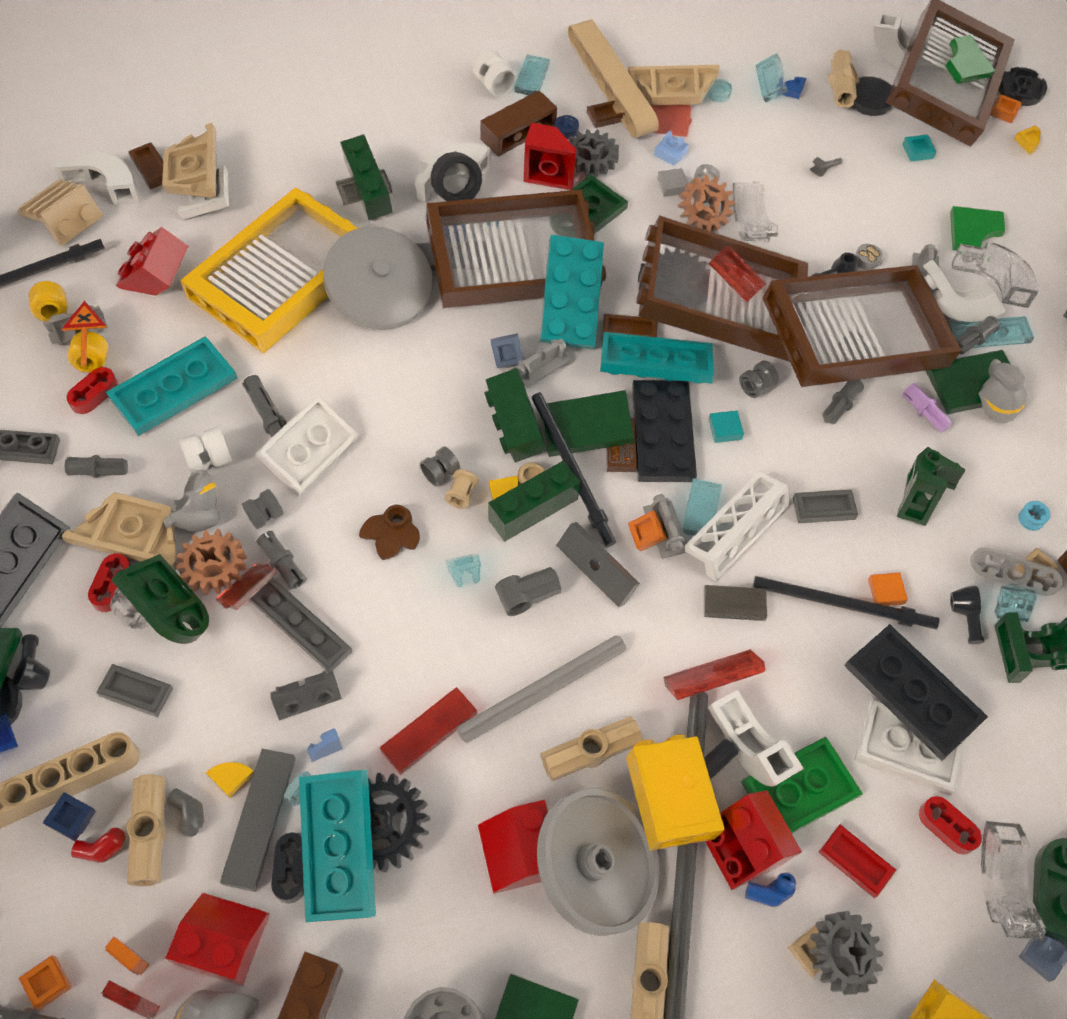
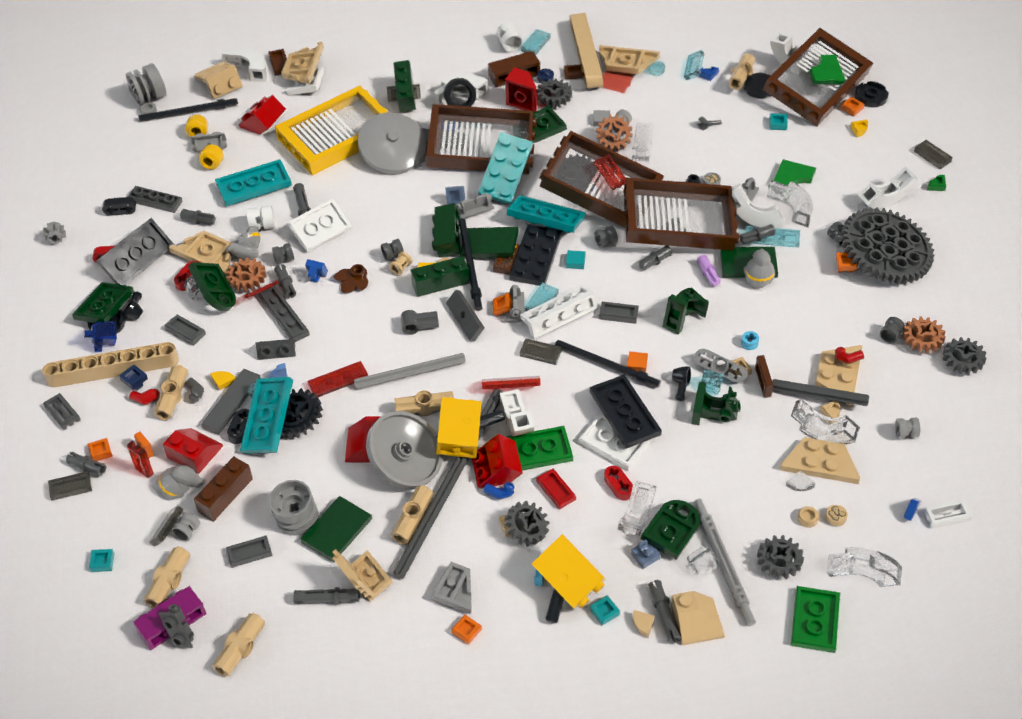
camera: 20 degrees right, 10 degrees down
(84, 319) = (213, 137): piece -> none
(91, 390) = (206, 178): red beam -> none
(326, 529) = (316, 270): none -> blue tile
(460, 564) = (387, 300): clear light blue tile -> none
(629, 325) = (539, 194): reddish brown tile -> none
(671, 149) = (608, 98): light blue tile -> none

